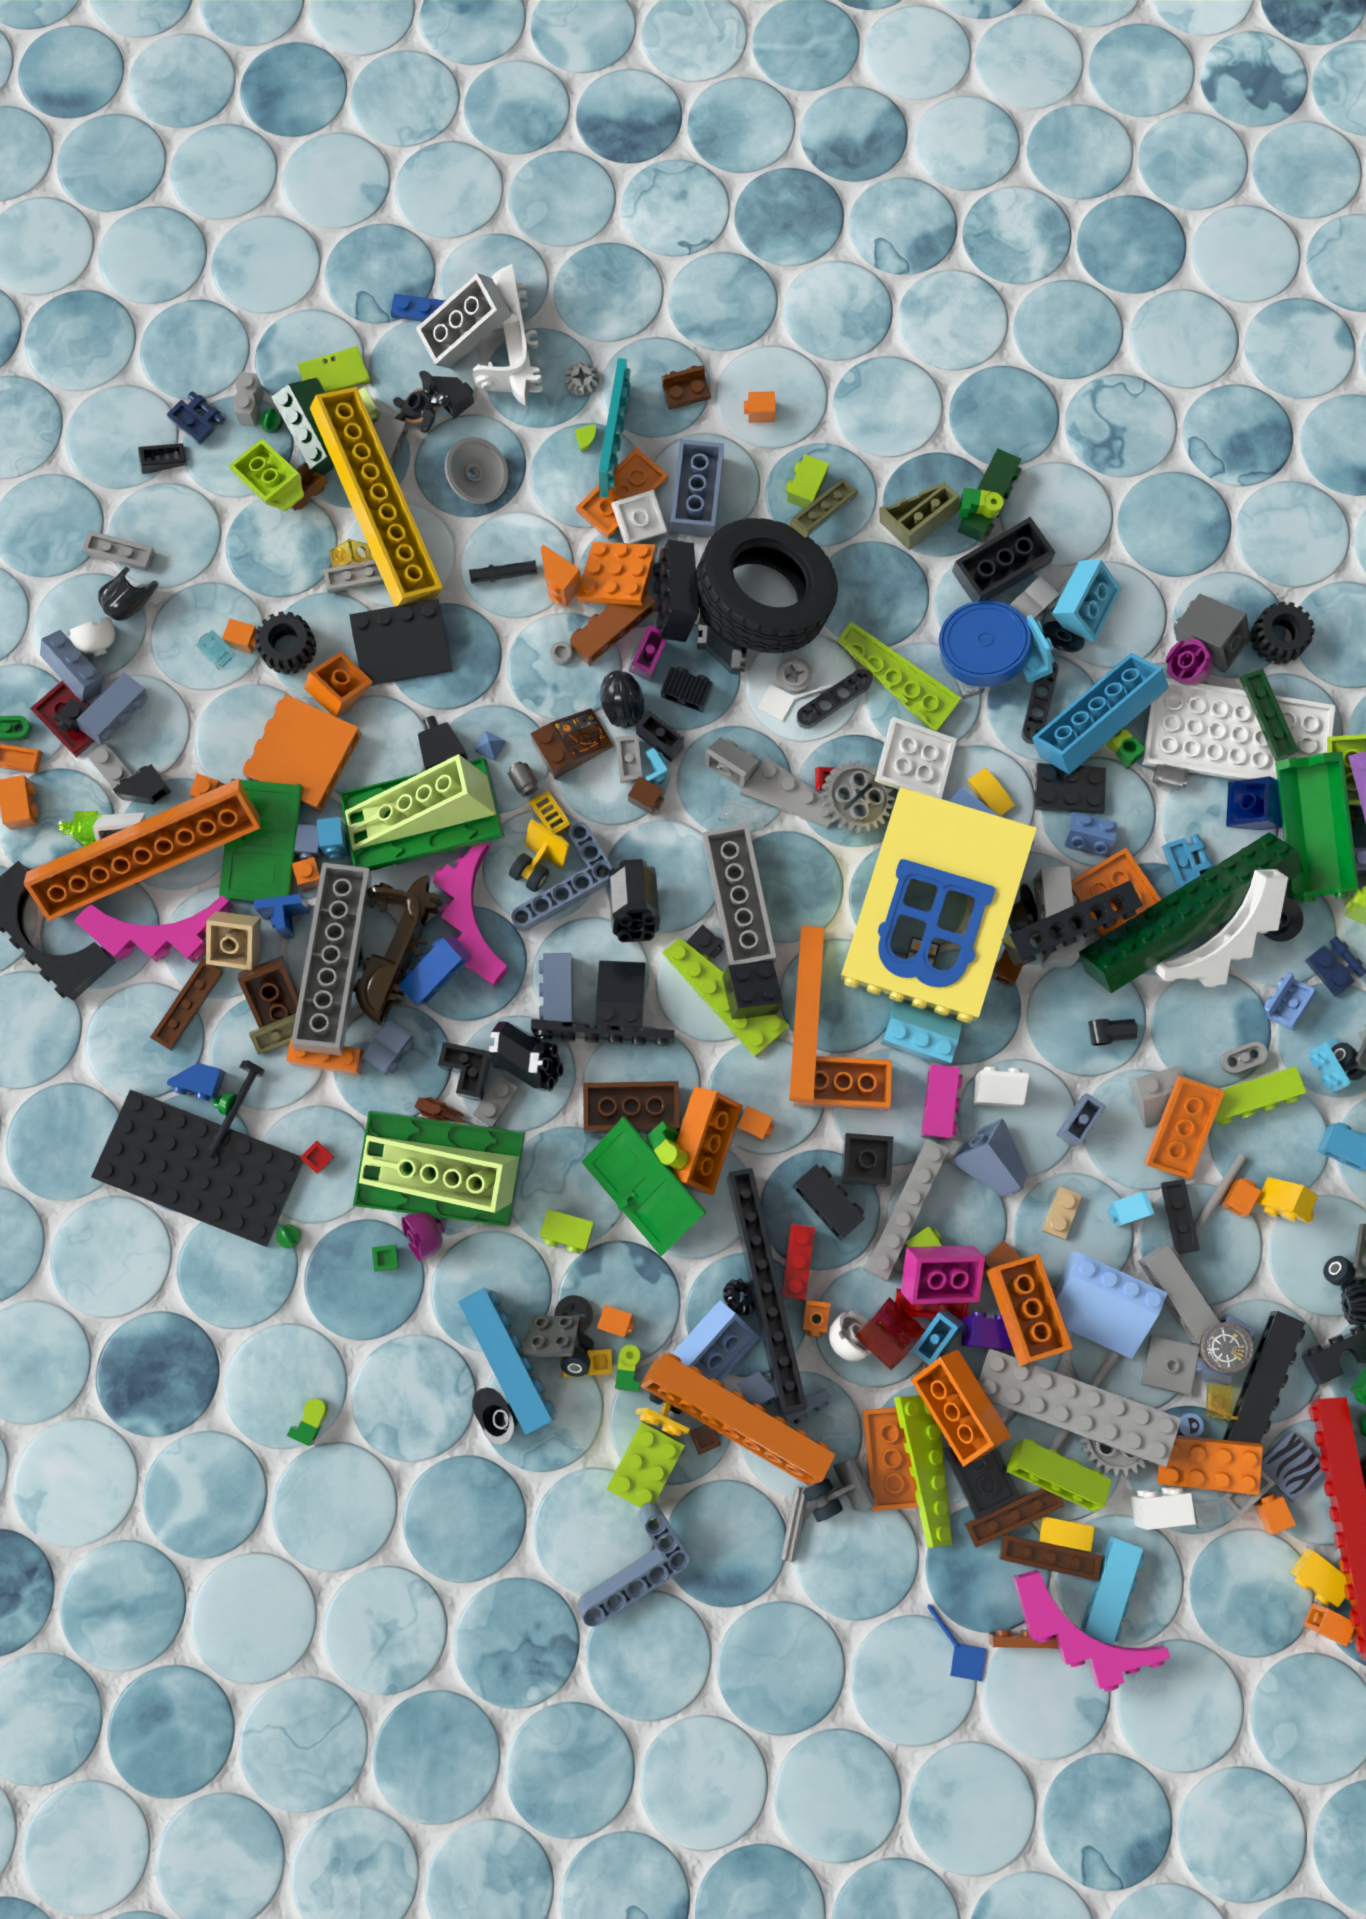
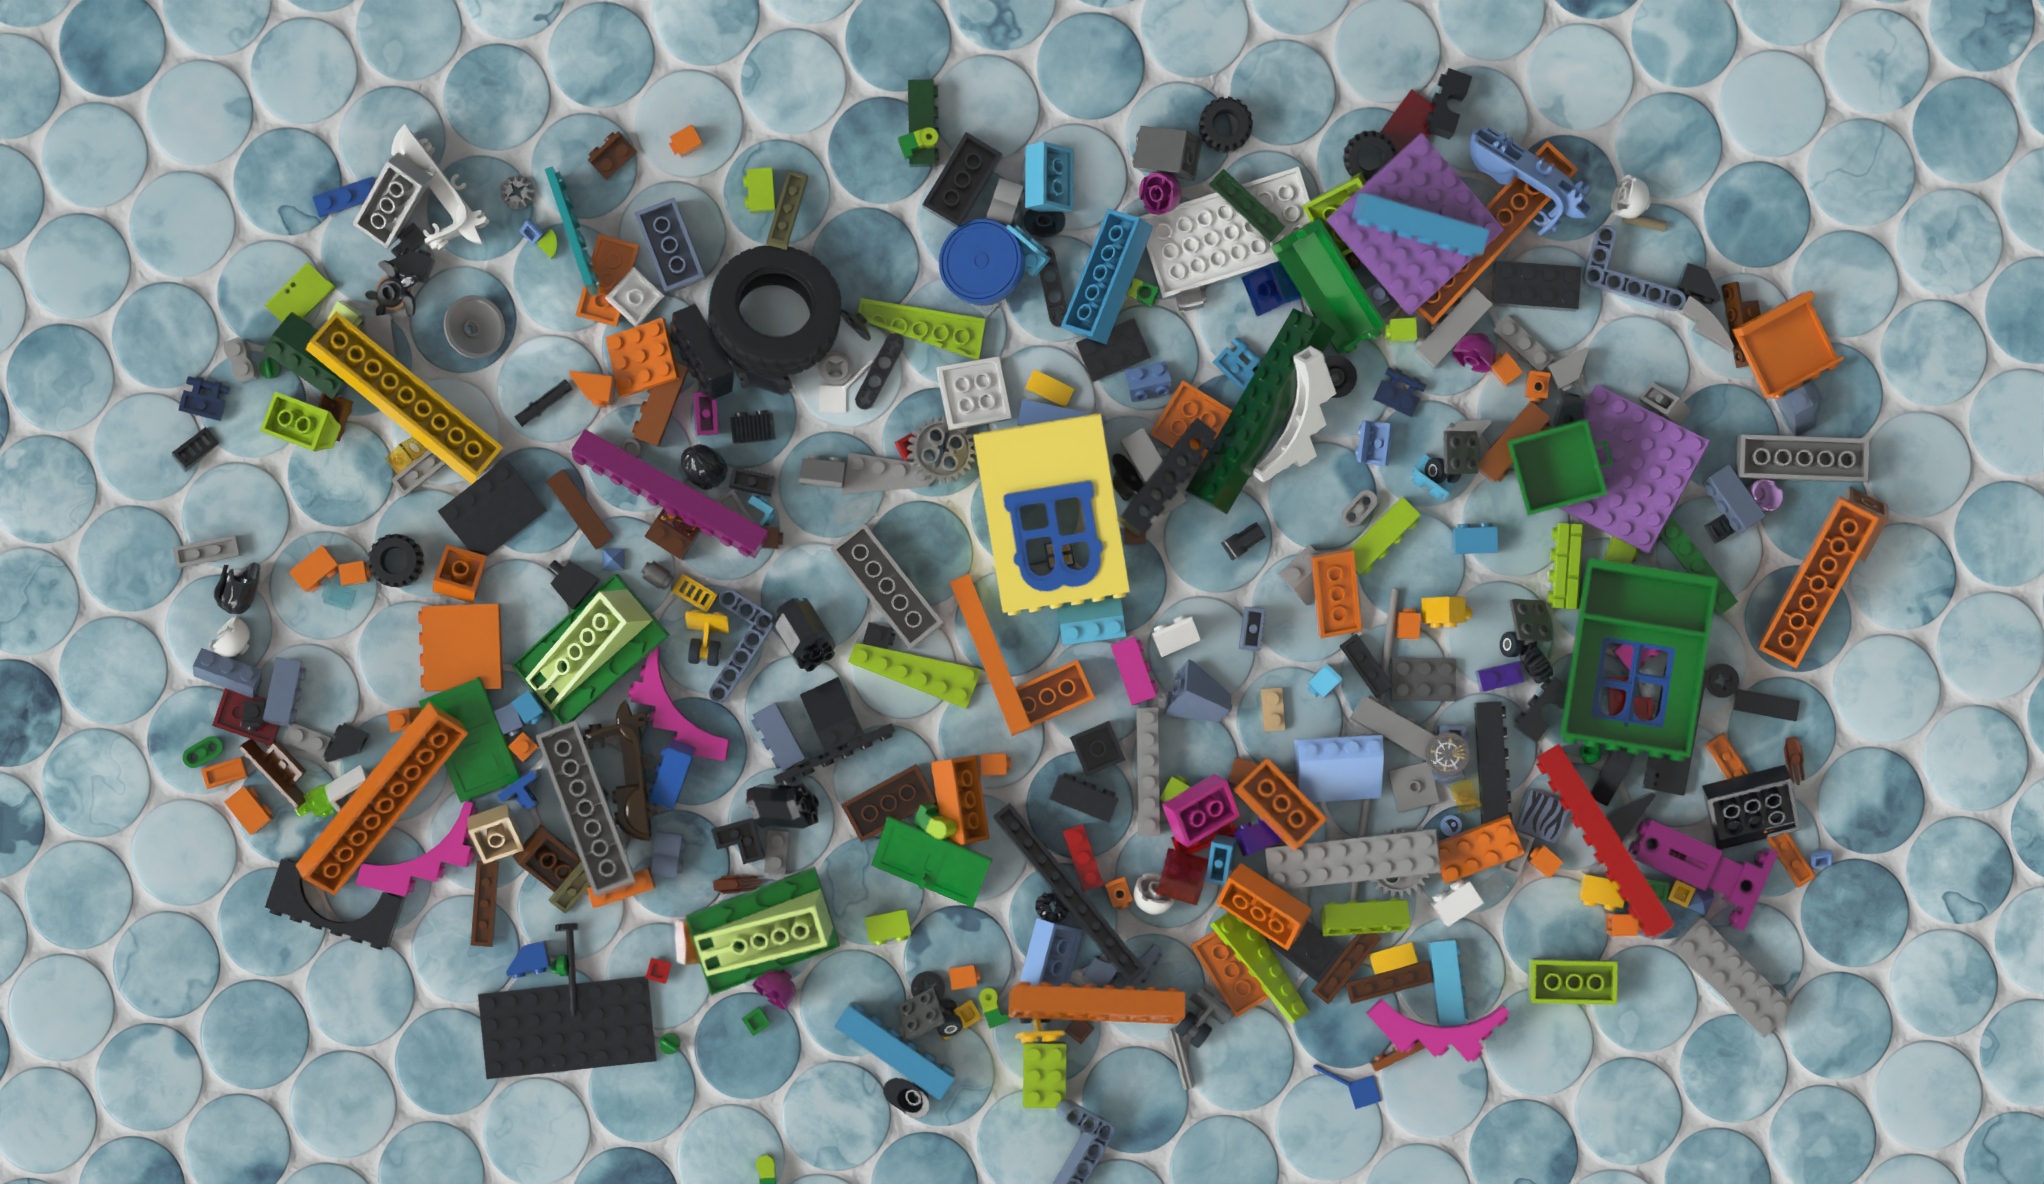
camera: 25 degrees left, 10 degrees up
(67, 777) = (279, 769): none -> reddish brown bracket
(206, 614) = (315, 569): none -> orange brick
(352, 1151) = (685, 948): none -> clear orange brick
(460, 368) = (410, 239): none -> black plate
(483, 684) = (579, 509): none -> reddish brown tile
(575, 417) = (531, 231): none -> medium blue slope
(576, 707) = (669, 493): none -> magenta brick
(752, 989) = (937, 657): black brick -> none
(835, 640) = (856, 322): none -> black dish
(919, 516) = (872, 173): olive wedge -> none
(1230, 1261) = (1423, 679): none -> dark grey plate
(1248, 1659) = (1572, 981): none -> lime brick
(1313, 1297) = (1499, 676): none -> dark purple brick

